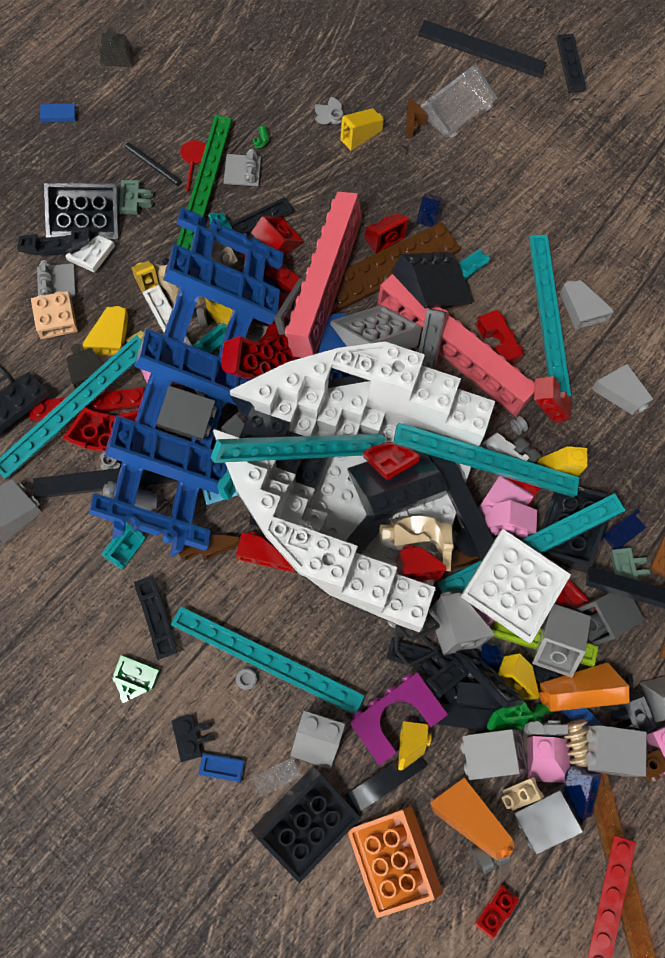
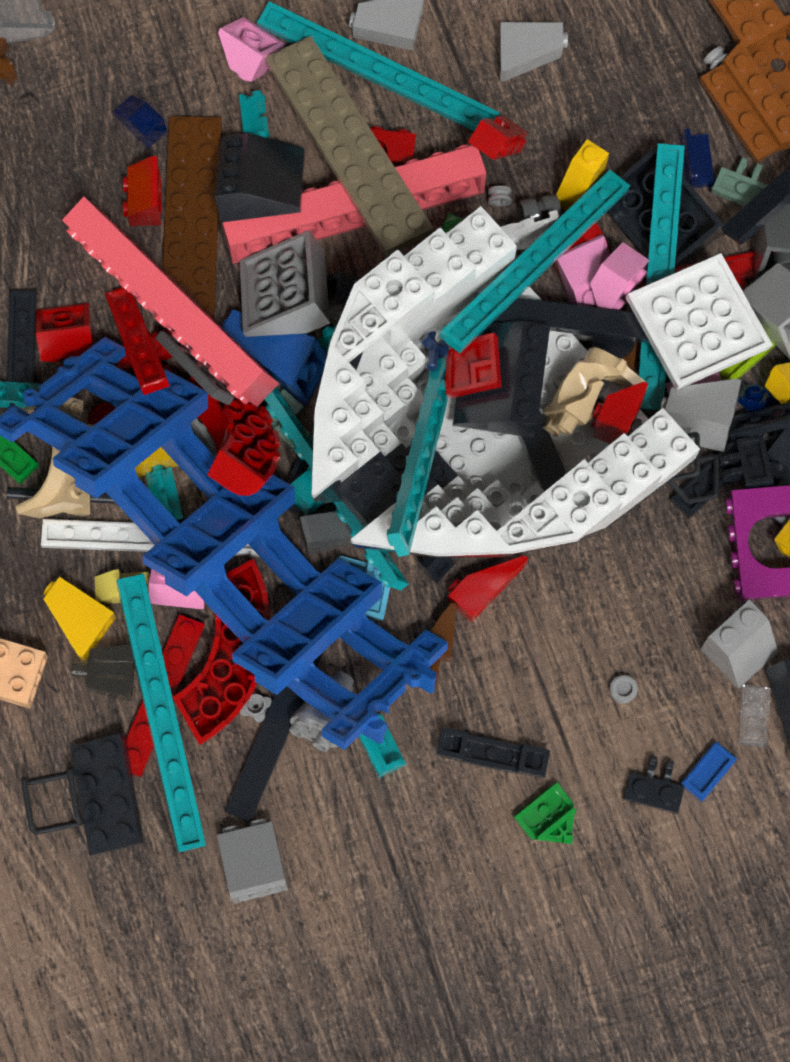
camera: 55 degrees left, 5 degrees up
(145, 275) = (22, 528): yellow slope -> none
(186, 414) = (271, 572): dark grey slope -> none
(267, 660) = (615, 653): teal plate -> none
(285, 270) = (137, 341): none -> red tile
(391, 425) = (435, 348): none -> dark blue bar
(432, 337) = (342, 233): dark grey tile -> none
(486, 317) = (349, 146): none -> dark tan plate
(511, 239) = (247, 48): none -> bright pink slope

